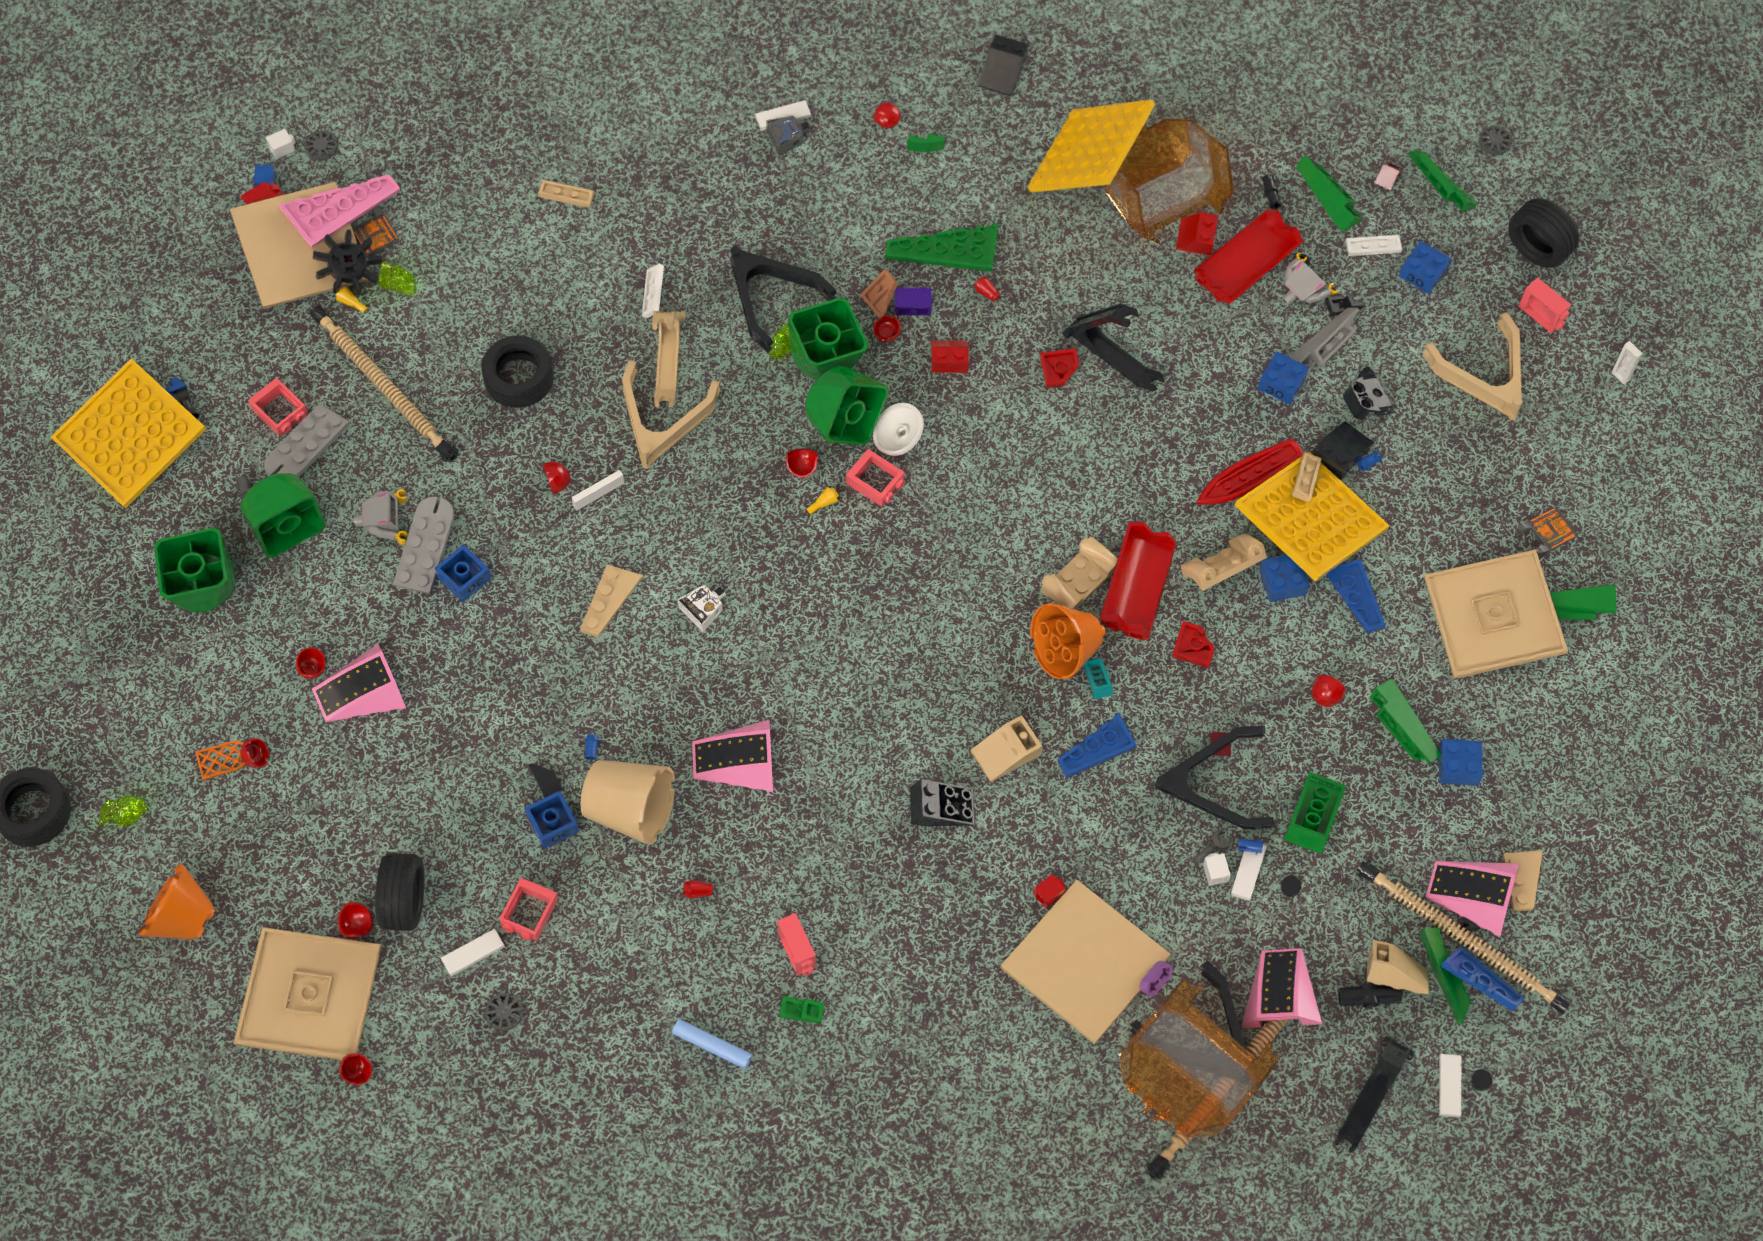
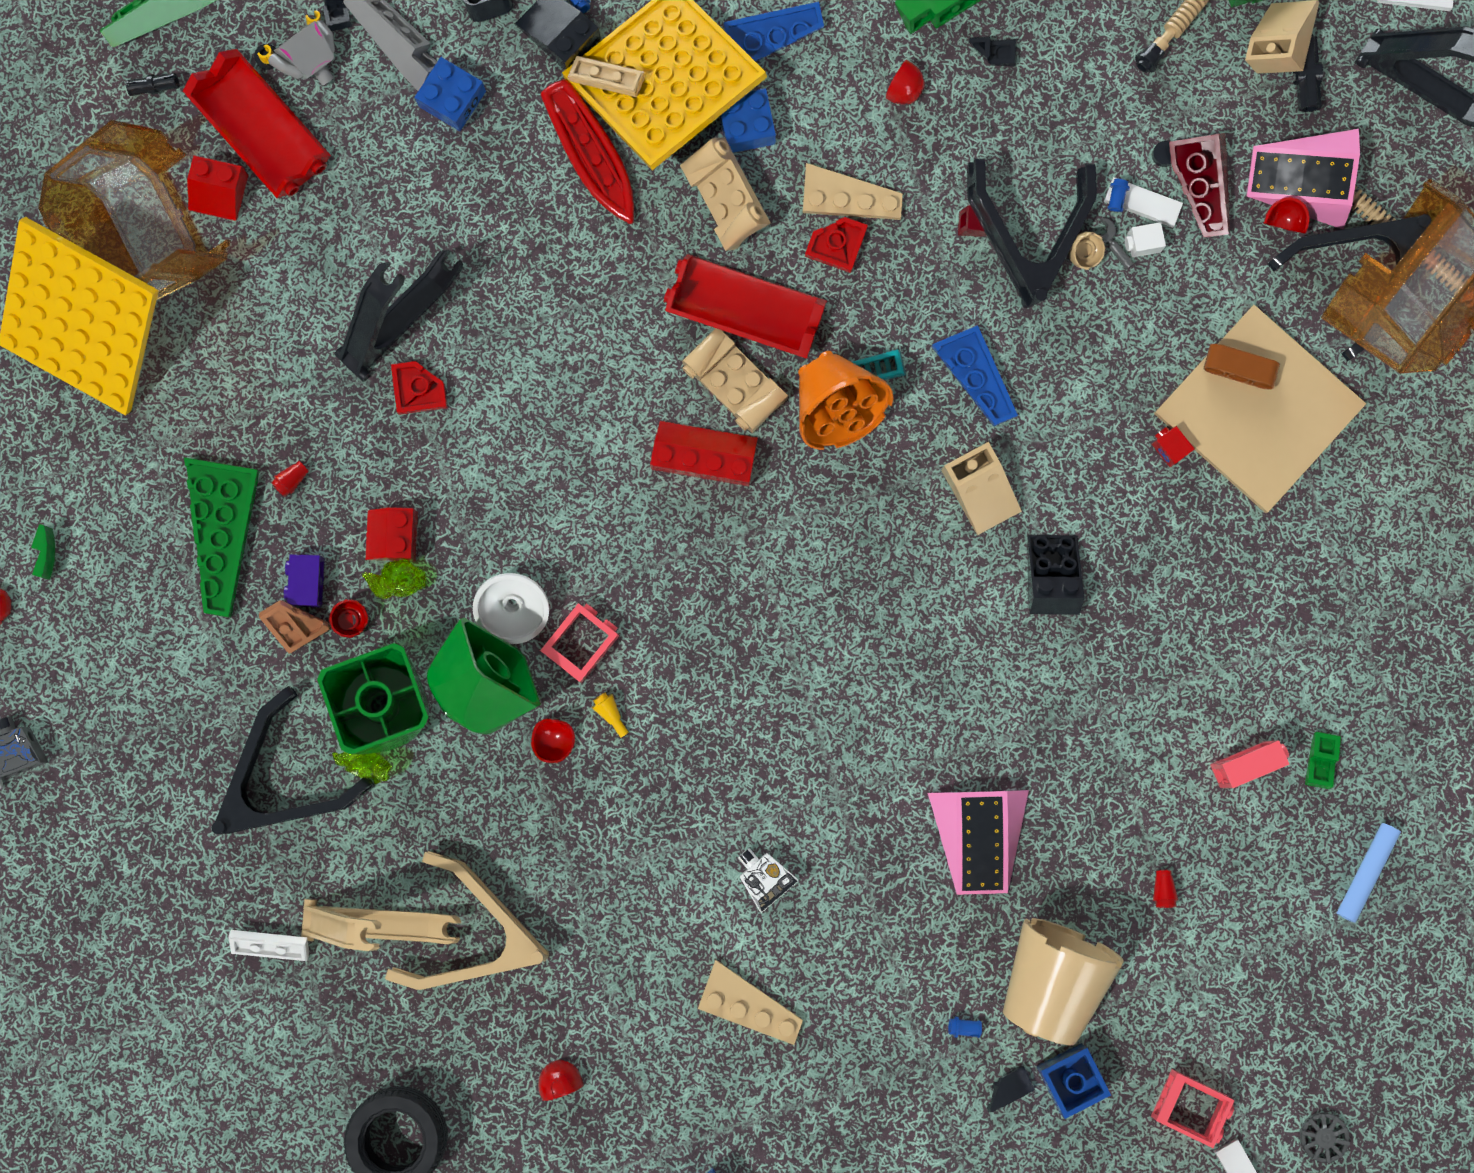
camera: 85 degrees left, 20 degrees up
(566, 193) = (95, 1071): tan tile -> none
(598, 490) = (585, 1022): white tile -> none
(916, 357) = (396, 579): none -> clear neon green hair
(1023, 556) = (703, 453): none -> red slope
(1117, 939) = (1241, 366): none -> dark orange beam
(1156, 978) = (1286, 324): medium lavender beam -> none
(1205, 820) = (1088, 245): none -> tan hair
(1232, 648) = (845, 196): none -> tan wing
(1247, 974) = (1289, 215): none -> red helmet
(1277, 914) = (1203, 174): none -> dark red wedge
(1315, 813) = (1071, 113): green slope -> none
(1361, 758) = (996, 51): none -> black slope

